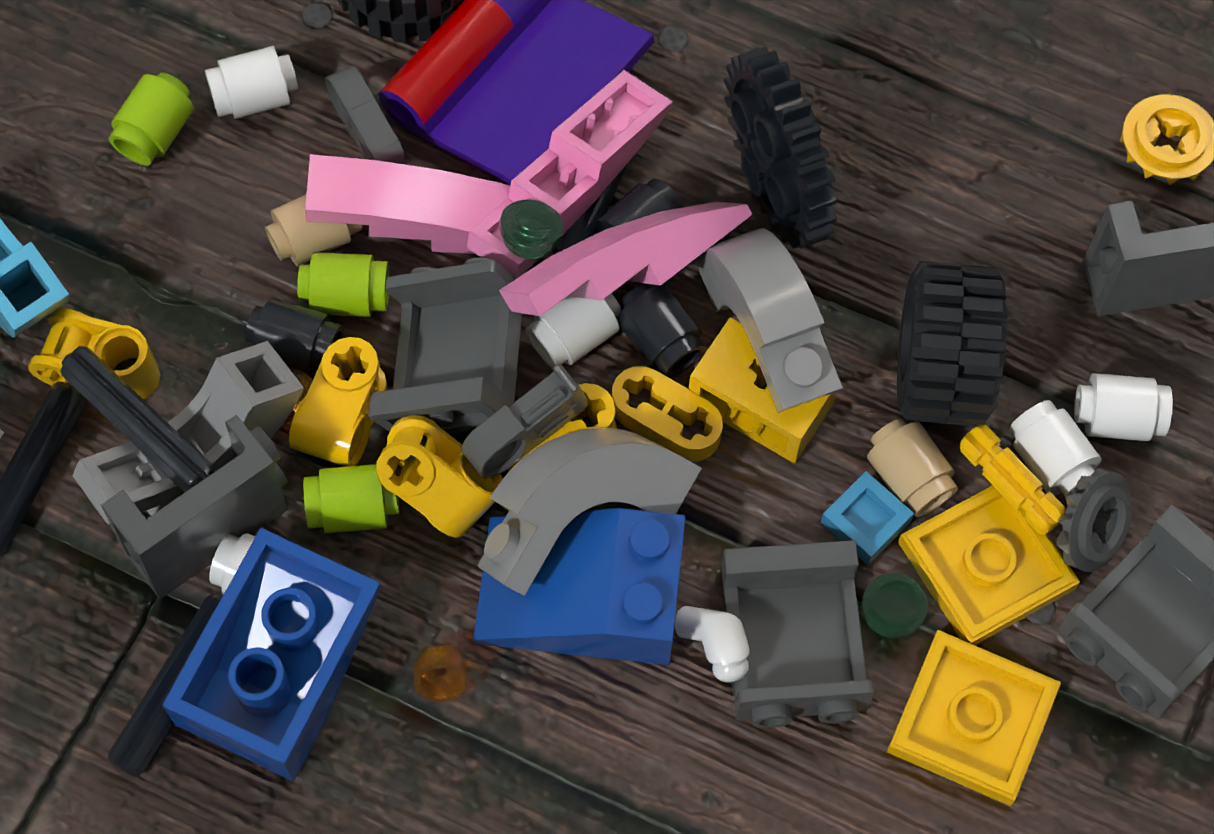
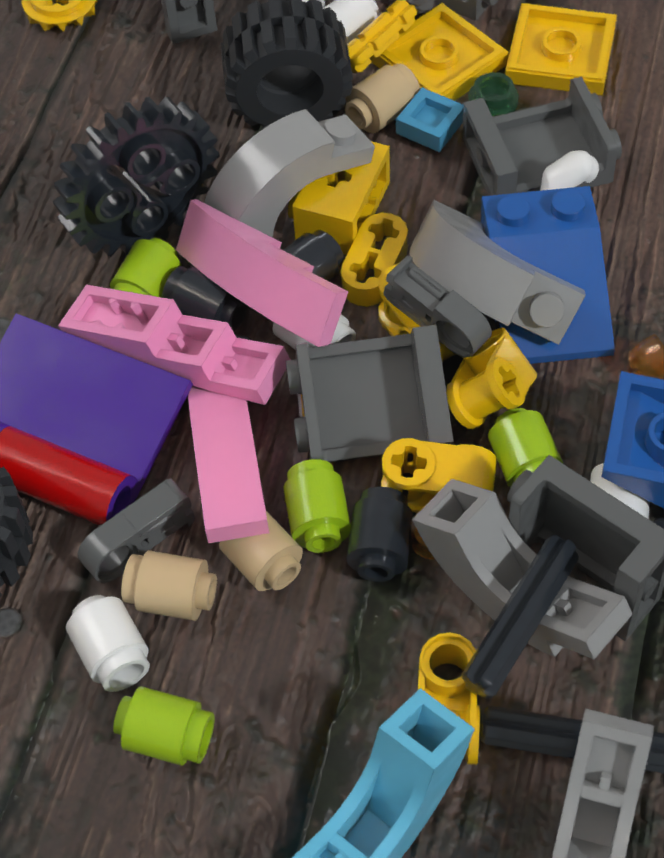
camera: 95 degrees left, 10 degrees down
(295, 133) = (168, 585): none -> tan brick
(530, 228) = (248, 341): clear green plate -> none
(688, 168) = (146, 268): none -> lime brick

